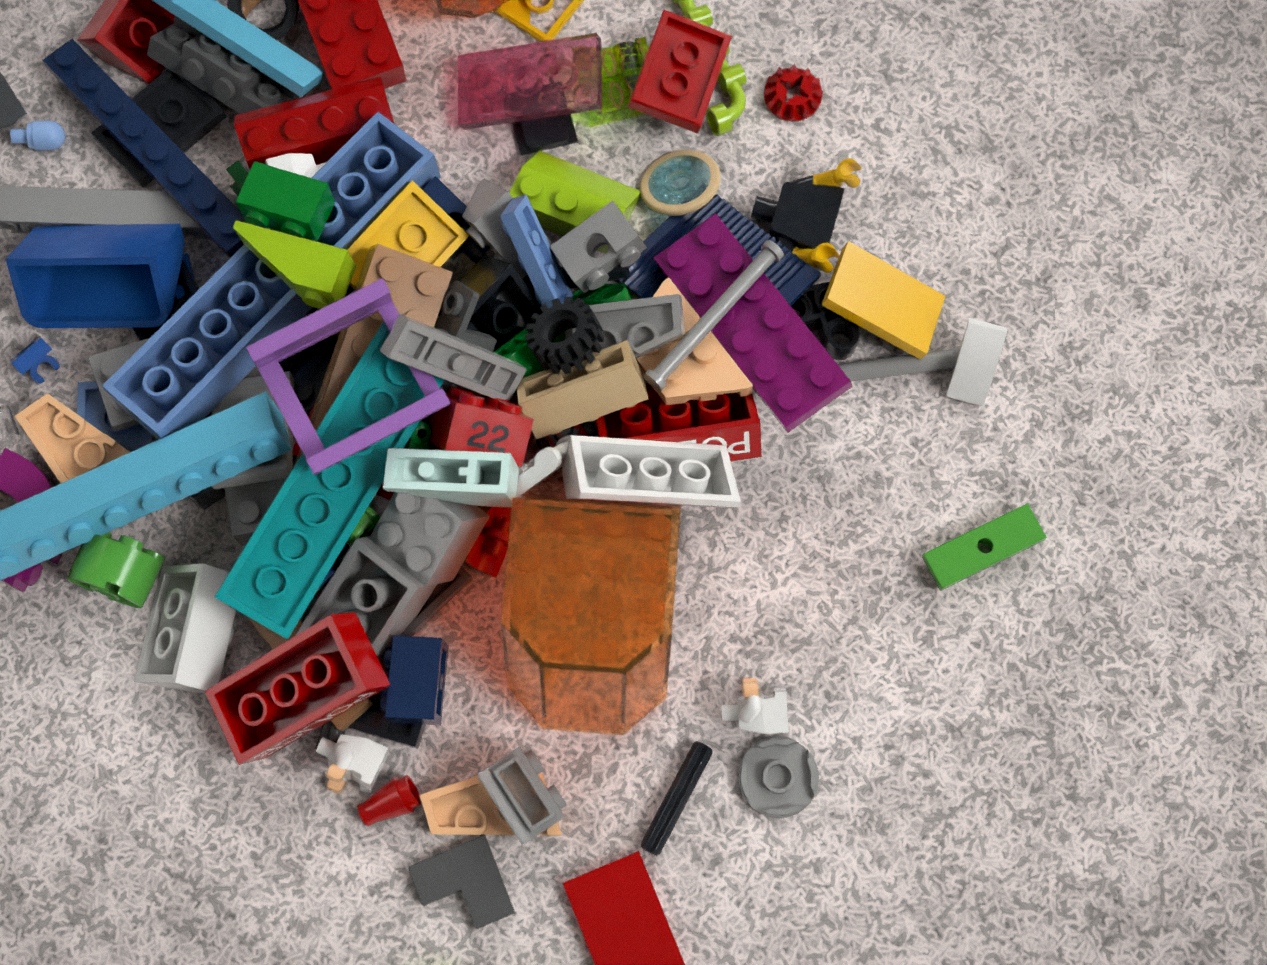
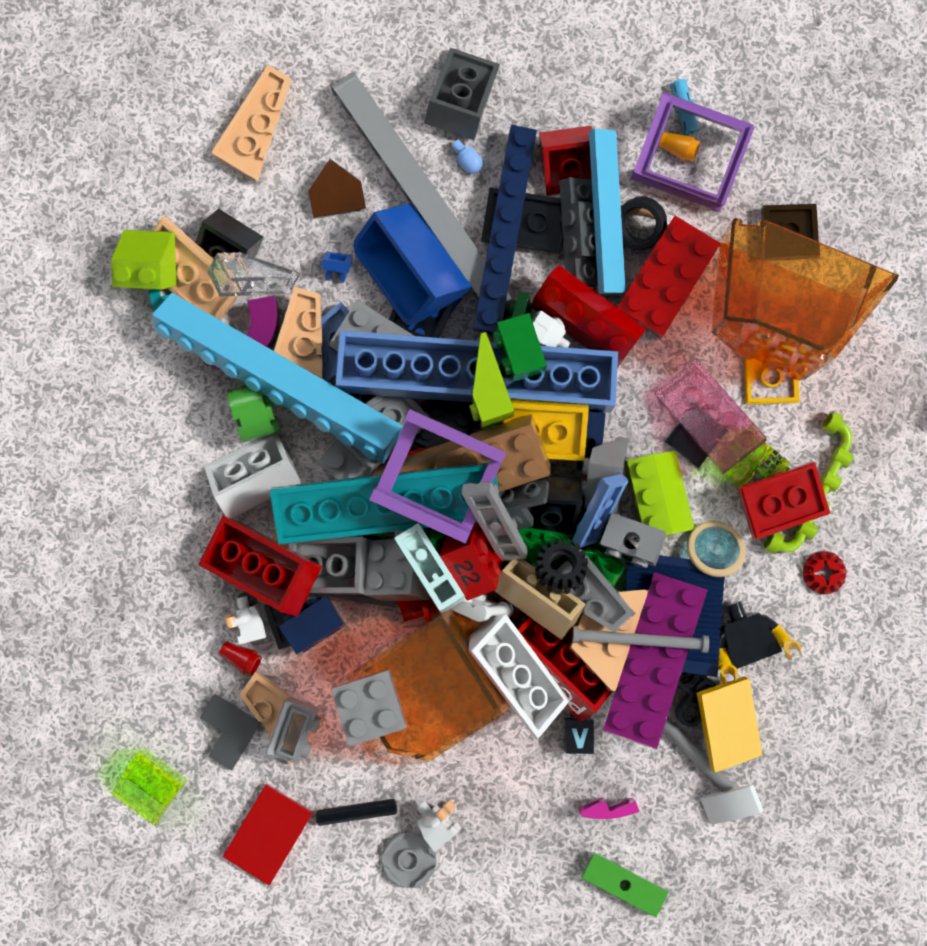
camera: 50 degrees right, 10 degrees up
(552, 648) = (369, 707): none -> light grey brick
(775, 474) = (578, 736): none -> black brick
(880, 508) = (599, 809): none -> dark pink slope

